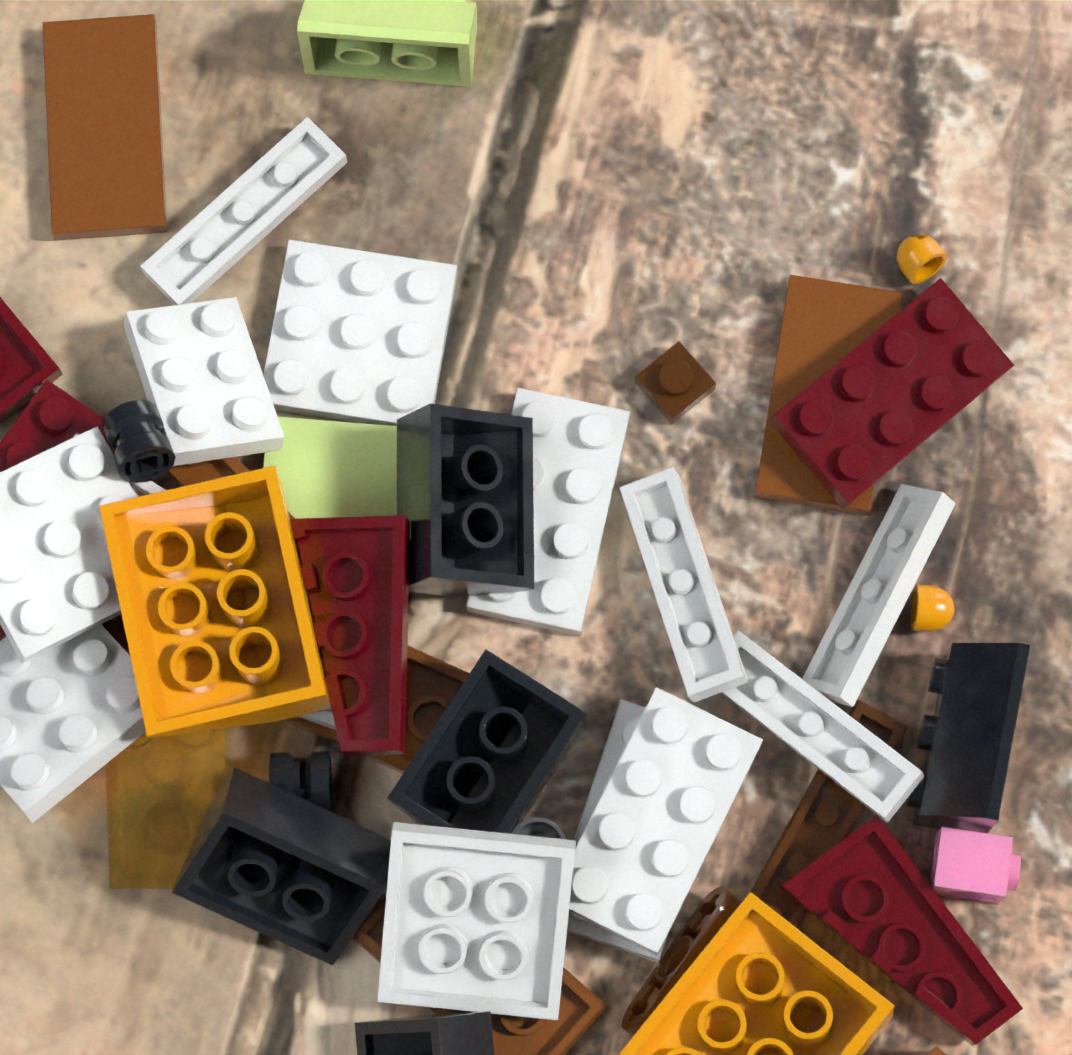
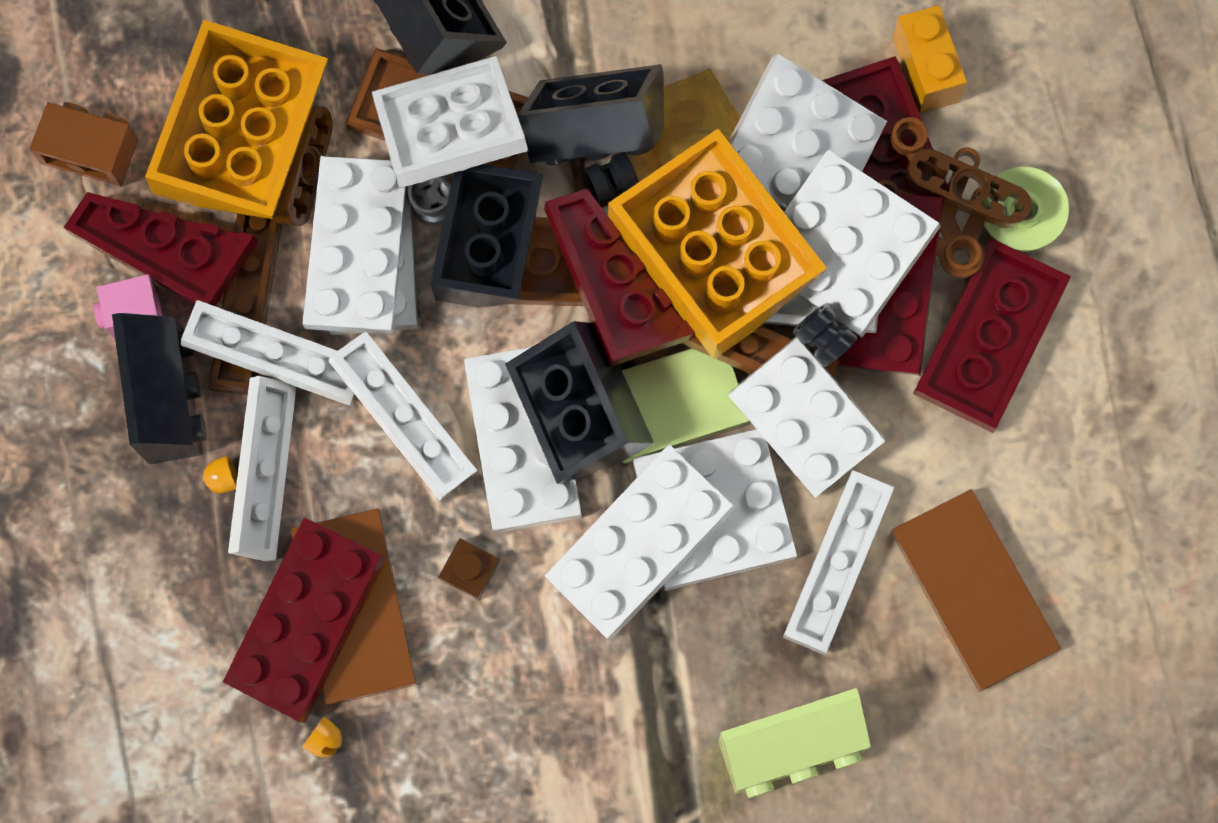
camera: 160 degrees right, 0 degrees up
(462, 320) = (640, 542): none -> white plate

